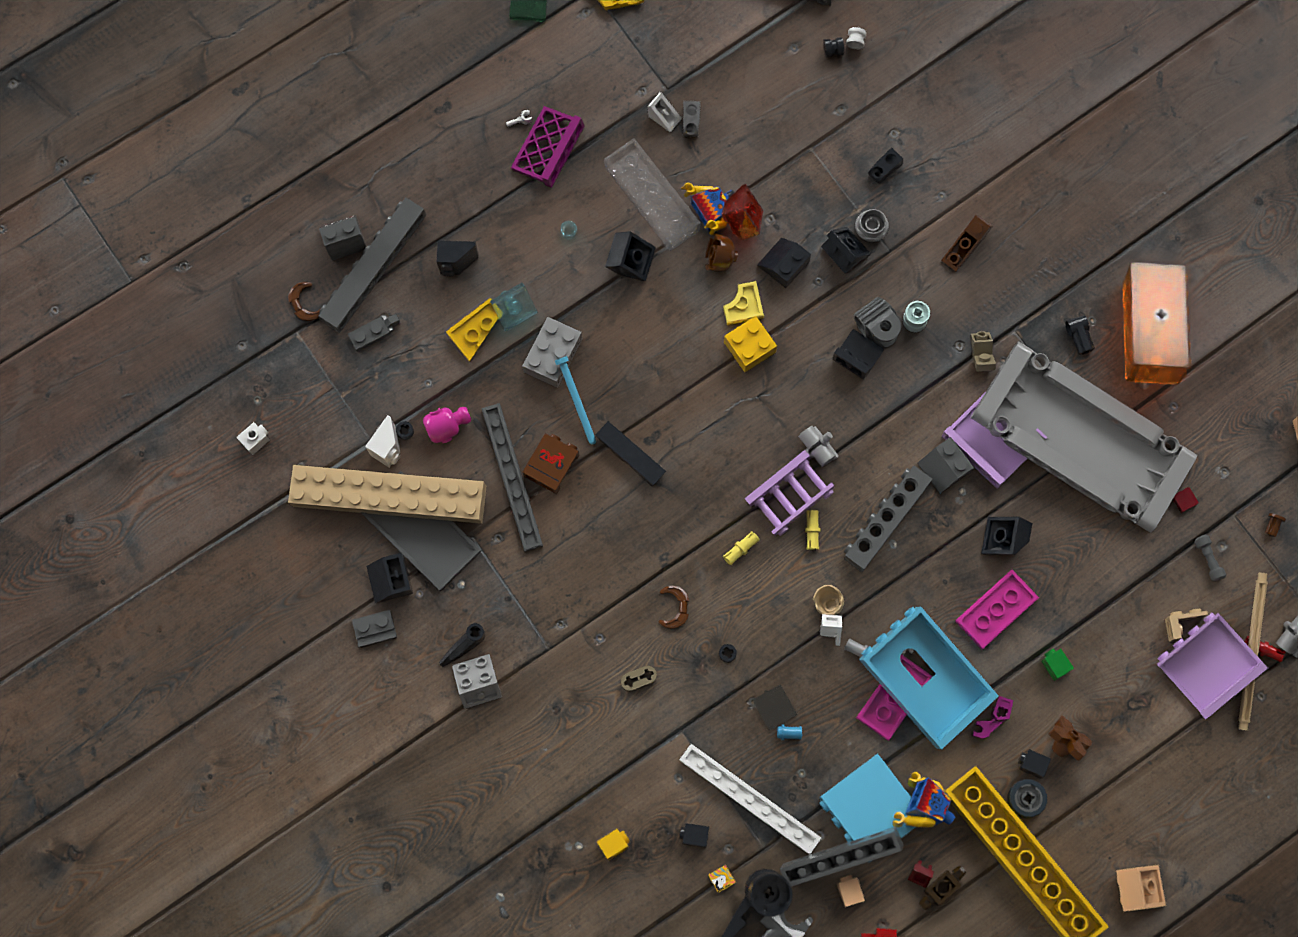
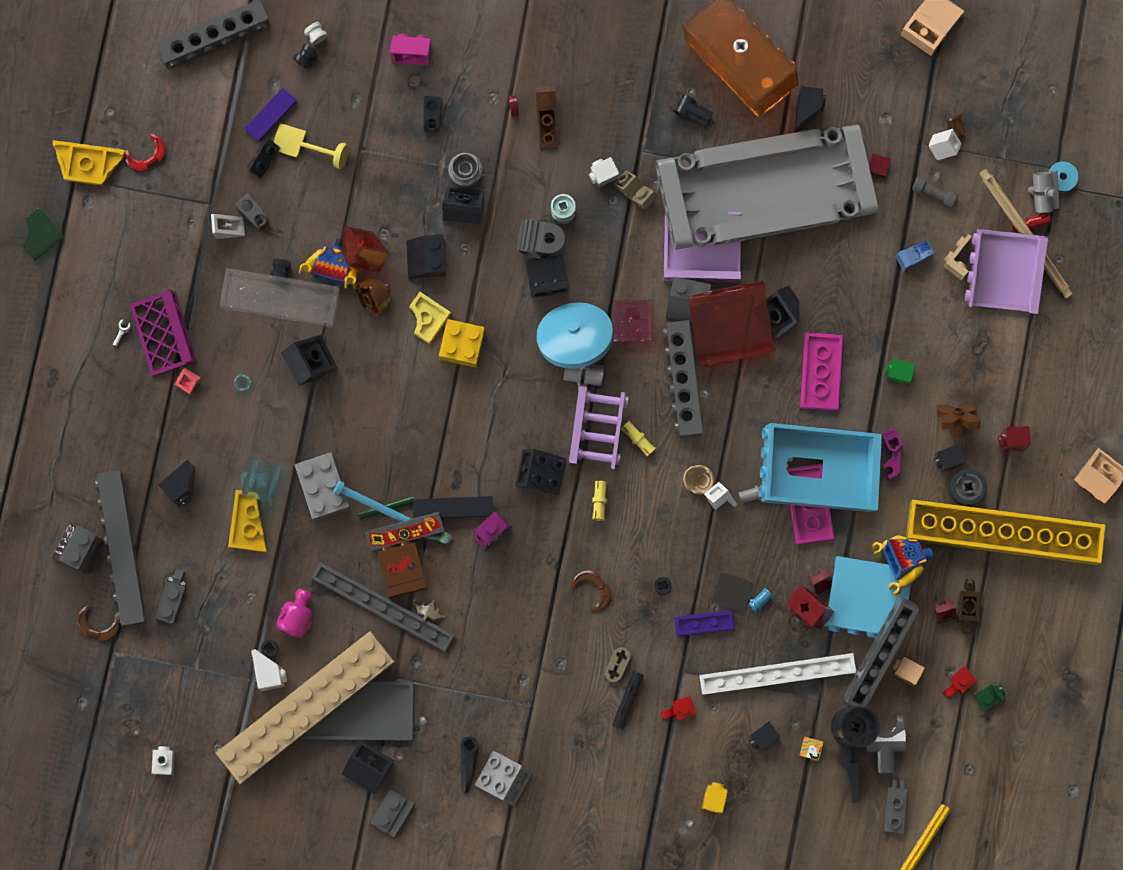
camera: 45 degrees left, 5 degrees up
(532, 193) = (187, 381): none -> coral tile
(540, 511) = (428, 611): none -> dark tan piece
(580, 437) = (404, 531): none -> tile
(589, 412) = (393, 505): none -> dark green bar
(603, 470) = (444, 539): none -> sand green hand
(621, 711) = (635, 678): none -> black pin
(642, 494) = (490, 530): none -> magenta torso
(654, 756) = (681, 709): none -> red plate
(664, 24) = (141, 165): none -> red piece
(673, 174) = (280, 268): none -> black wheel
(719, 487) = (540, 471): none -> black bracket
(731, 709) = (704, 623): none -> dark purple tile
(735, 90) = (264, 157): none -> black hinge
(767, 95) = (291, 140): none -> light yellow piece
(770, 66) = (270, 114): none -> dark purple tile
(820, 772) = (804, 599): none -> dark red brick
(837, 412) = (575, 335): none -> medium azure dish
(848, 762) = (821, 582): none -> tile
(890, 441) = (632, 320): none -> clear pink slope
(913, 108) = (410, 49): none -> dark pink slope
(951, 211) = (513, 106): none -> dark red tile
(961, 510) = (731, 323): none -> clear red panel
(971, 318) = (603, 172): none -> white brick
(1098, 795) = (1015, 439): none -> dark red brick
(1150, 589) = (914, 255): none -> medium blue leg
(1172, 407) = (809, 105): none -> black slope
(1251, 530) = (944, 144): none -> white panel

